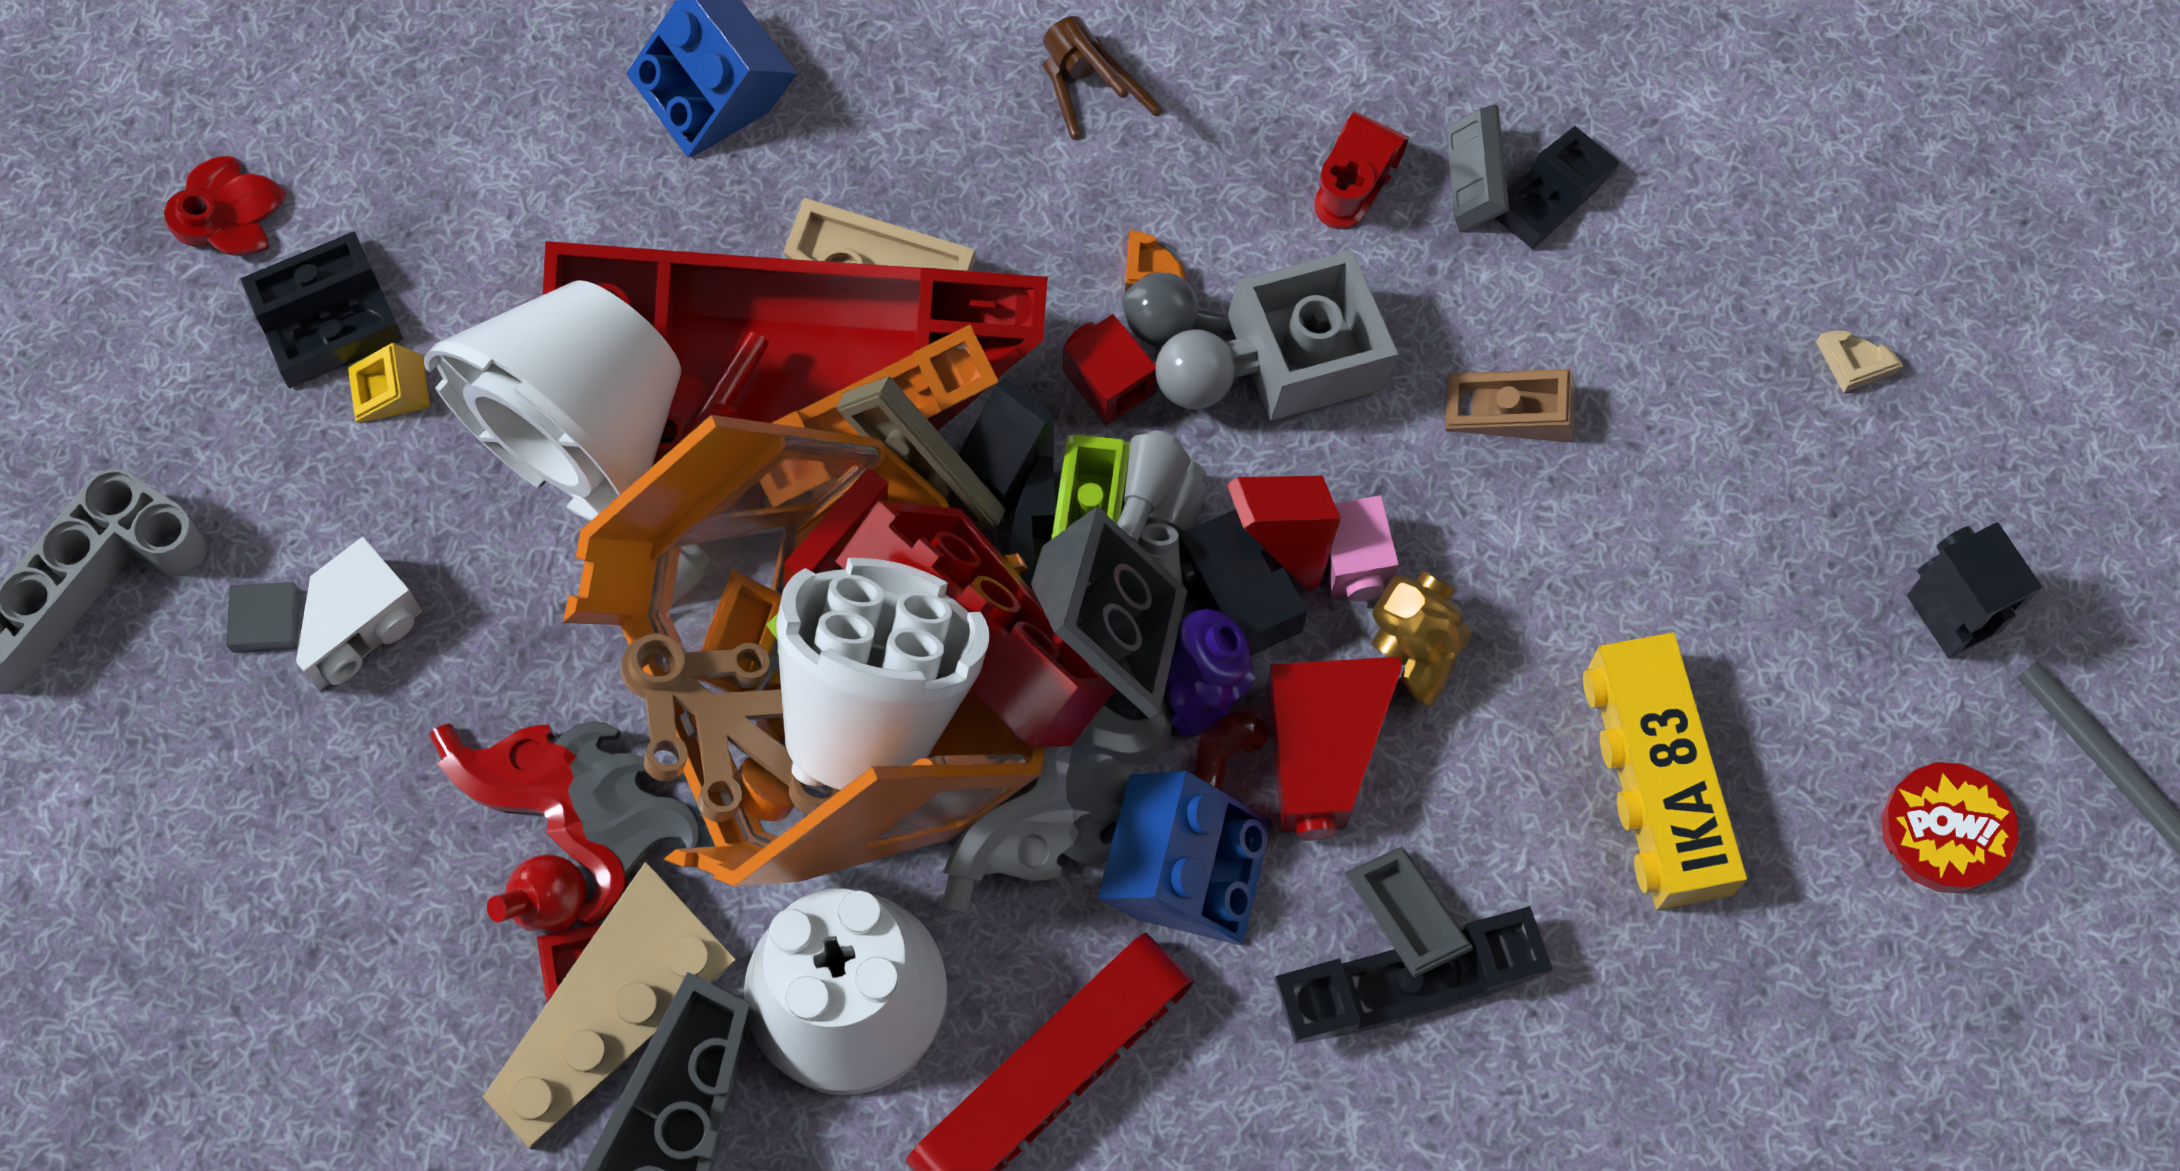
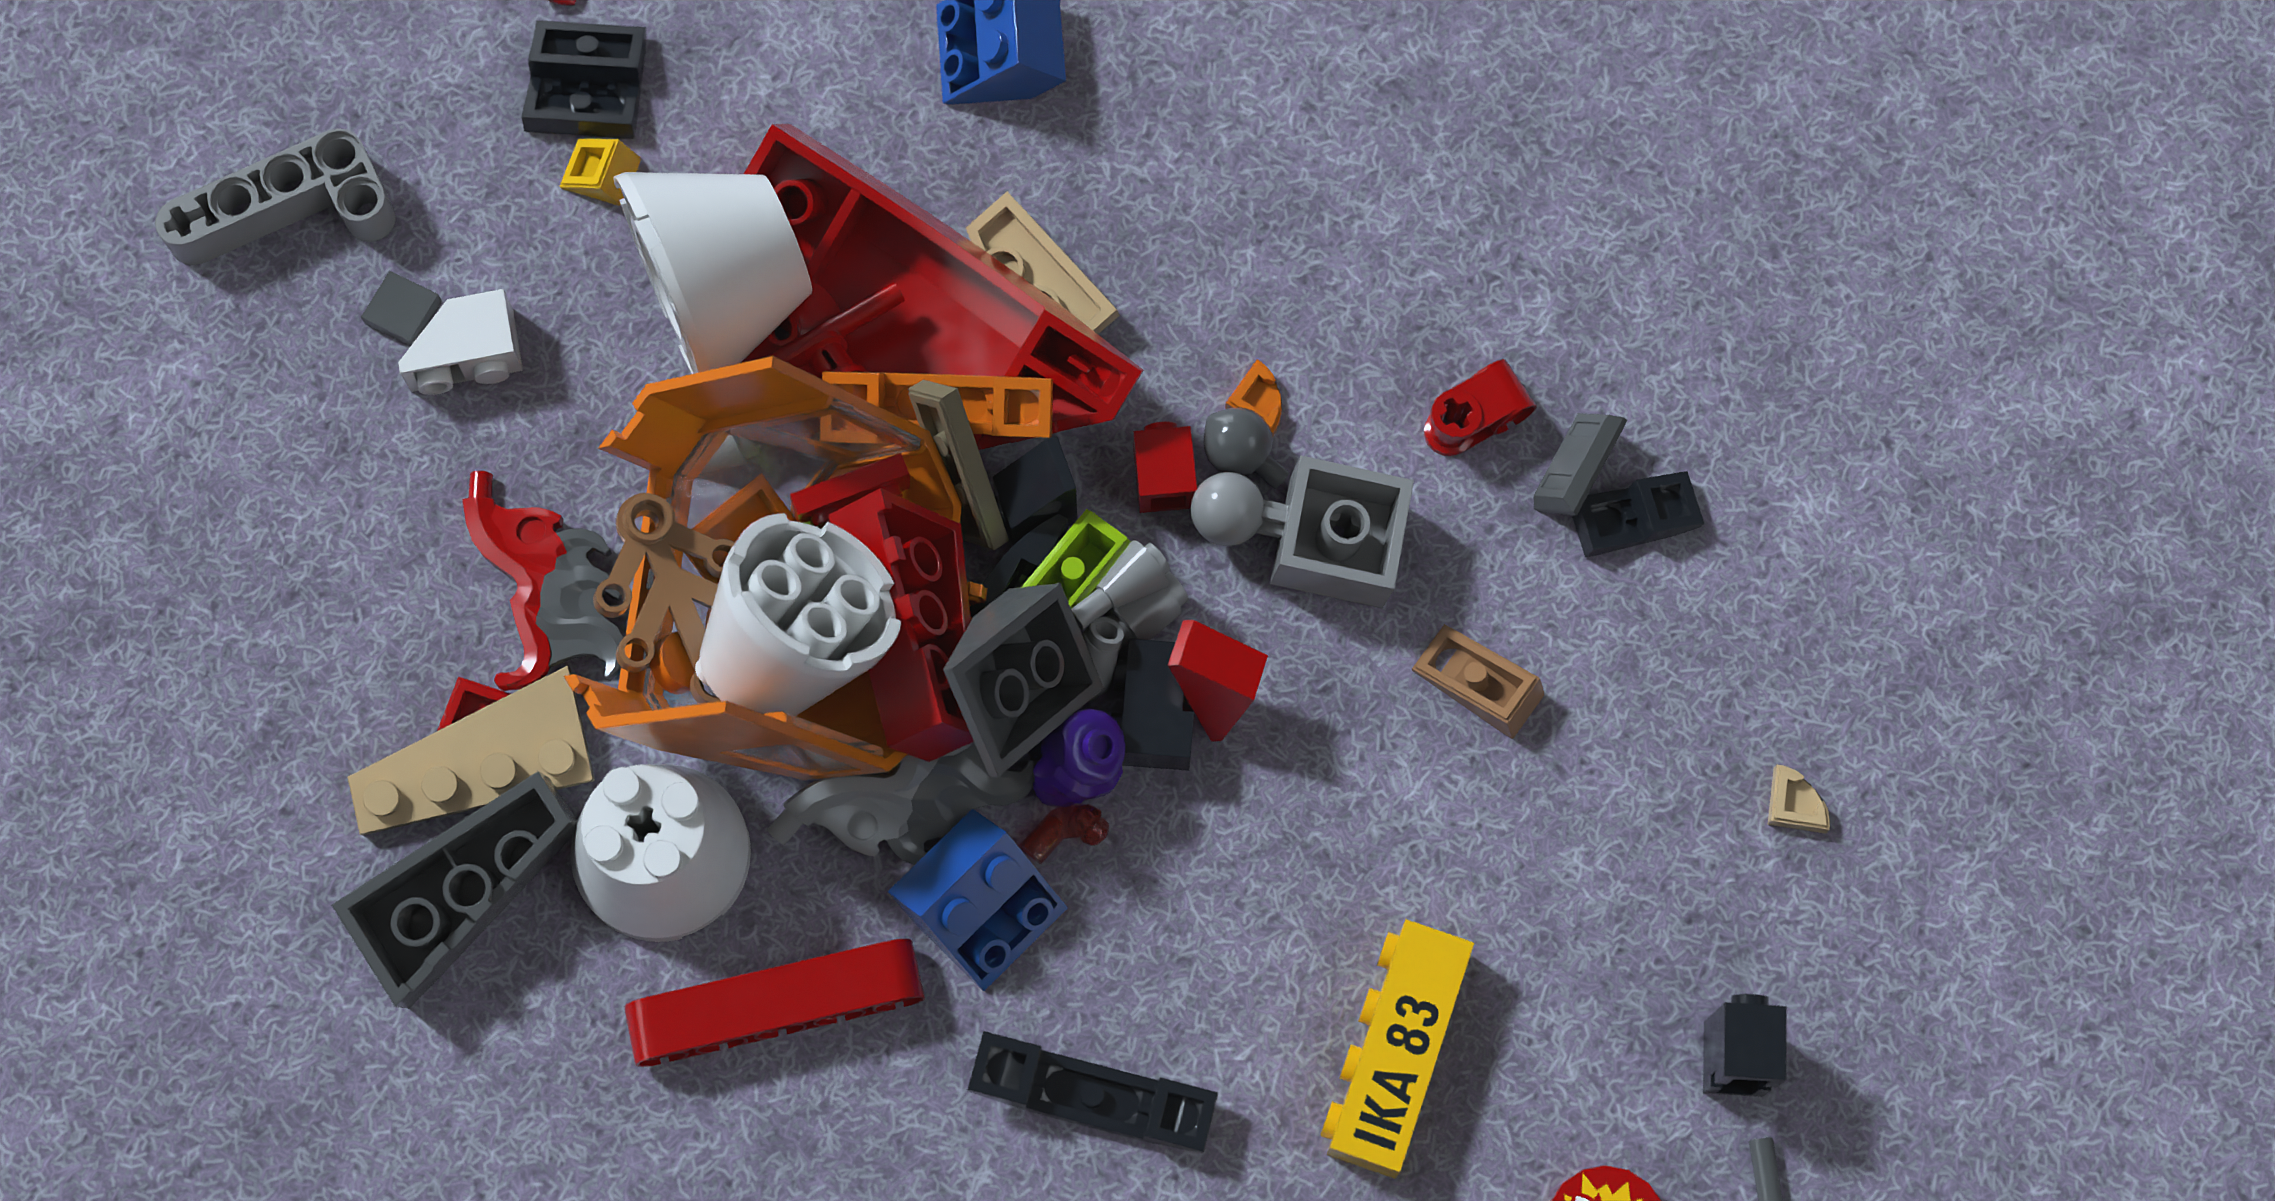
camera: 30 degrees right, 5 degrees up
(541, 895) = (477, 647): red piece -> none
(1079, 54) = (1309, 183): reddish brown plant -> none
(1324, 736) = (1147, 867): red slope -> none
(1362, 551) = (1269, 730): bright pink brick -> none
(1408, 911) = (1122, 1041): dark grey tile -> none
(1423, 629) = (1275, 826): pearl gold head -> none

